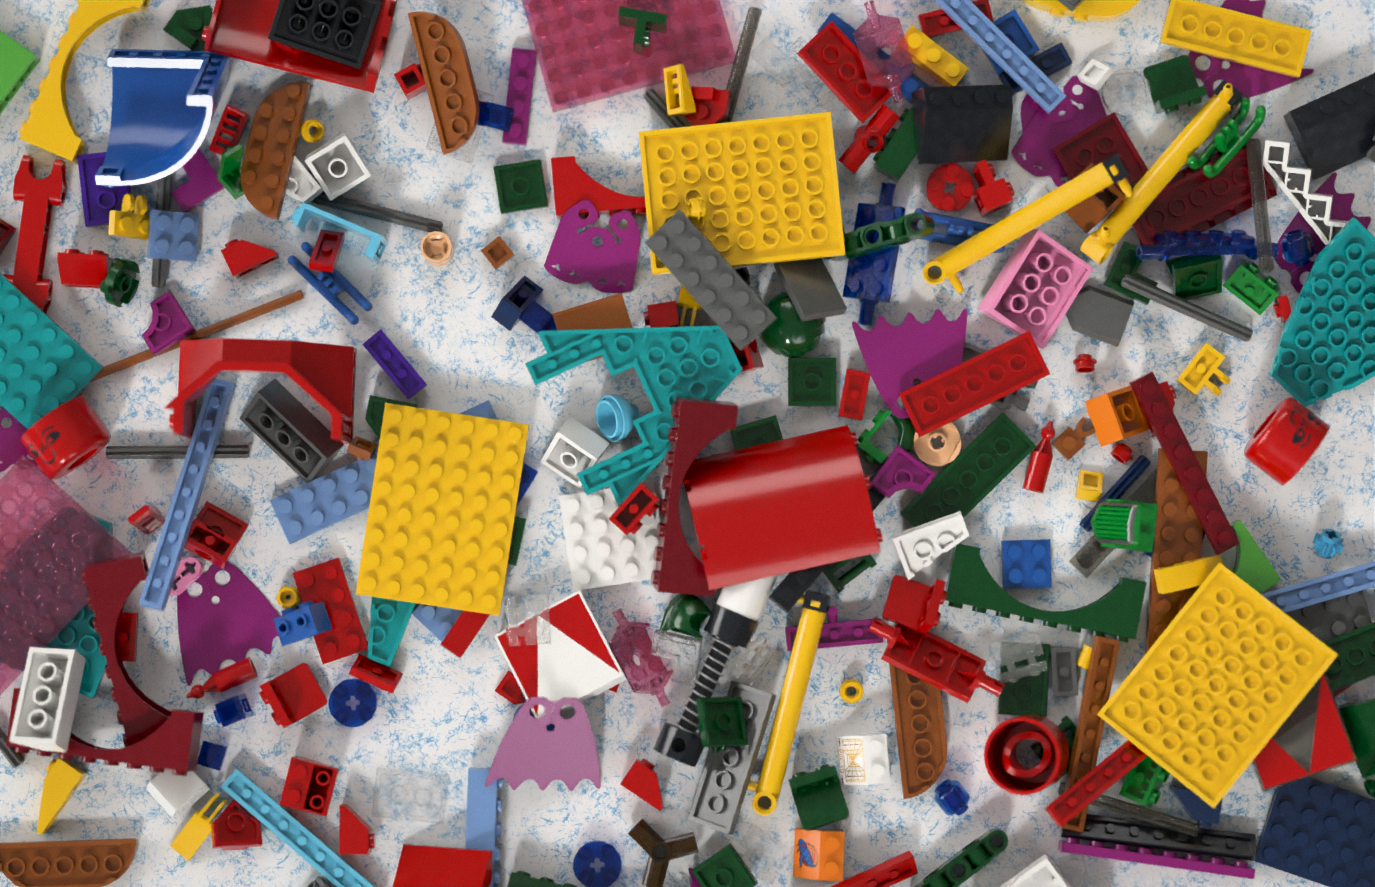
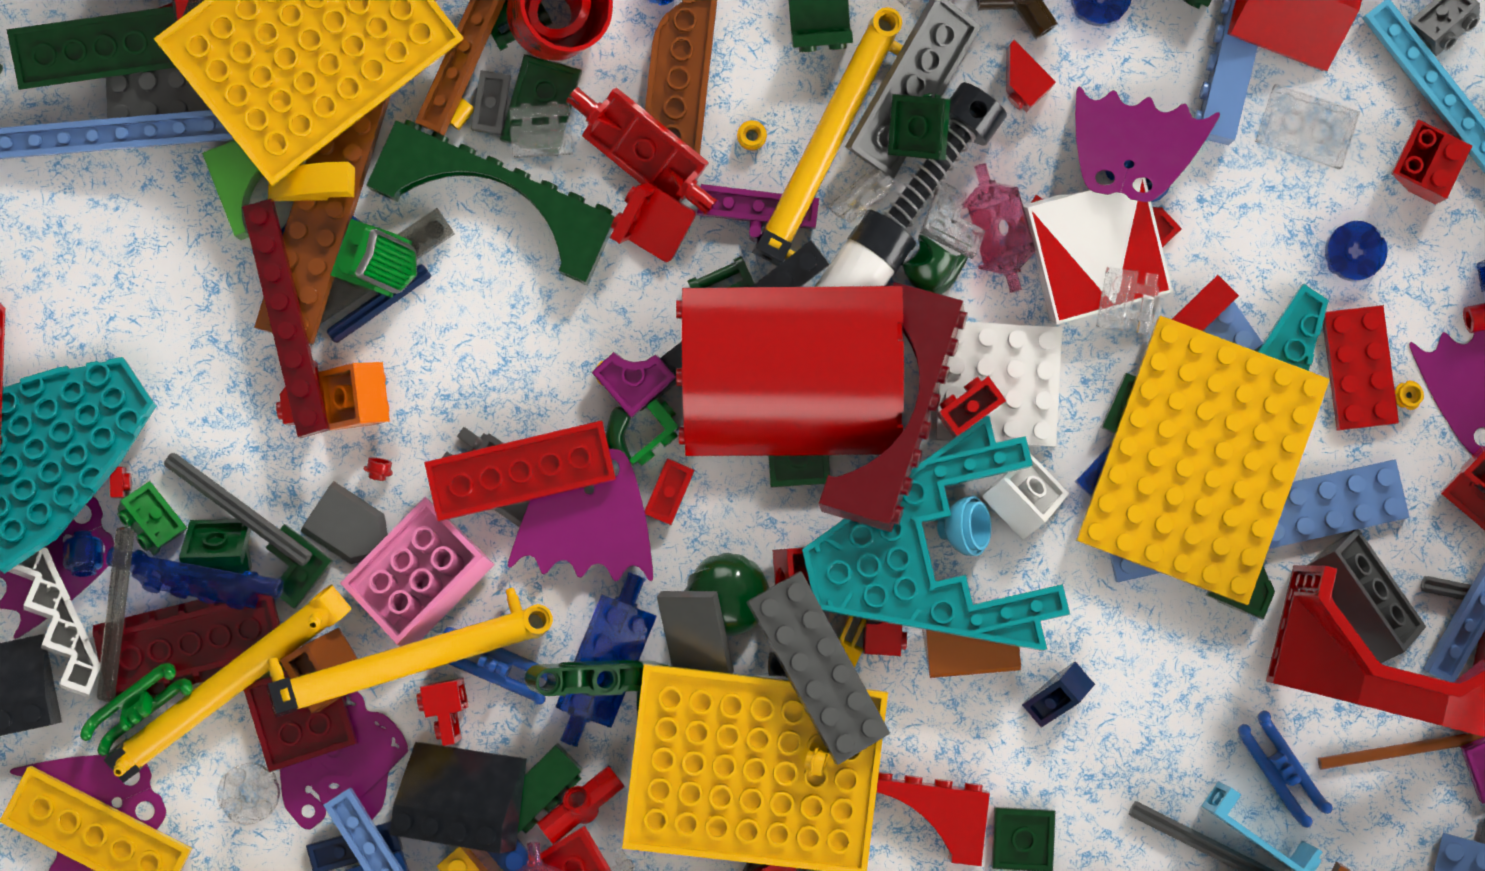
camera: 175 degrees left, 0 degrees up
(246, 257) = (1382, 824): red slope -> none
(293, 695) = (1428, 274): red bracket -> none
(302, 623) = (1400, 358): blue brick -> none
(326, 251) = (1281, 810): red plate -> none
(354, 832) = (1385, 96): red slope -> none
(361, 448) = (1285, 556): dark orange plate -> none
(376, 673) = (1322, 278): red plate -> none
(394, 364) = (1224, 651): dark purple plate -> none
(437, 248) = (1144, 783): light nougat wheel -> none
(497, 252) = (1069, 762): dark orange plate -> none
(538, 318) = (1038, 669): clear blue slope -> none
(590, 262) = (958, 725): magenta piece -> none
(811, 382) = (717, 518): dark green plate -> none
(863, 759) = (755, 50): white slope -> none
(927, 541) = (624, 291): white wing -> none
(938, 456) = (580, 394): light nougat plate -> none
(947, 201) = (487, 738): red plate -> none
(971, 473) = (553, 358): dark green plate -> none
(1026, 564) = (506, 241): blue plate -> none
(1040, 462) = (460, 360): red wheel -> none
(1071, 441) = (417, 378): dark orange plate -> none
(1089, 485) = (407, 319): yellow slope -> none
(1095, 74) = (281, 824): white tile -> none
(1122, 453) = (358, 349): red plate -> none
(1173, 85) = (187, 790): dark green bracket -> none
(1201, 368) = (238, 430): yellow hinge -> none
(1286, 440) = (154, 317): red piece -> none
(1328, 543) = (134, 185): dark azure gear -> none

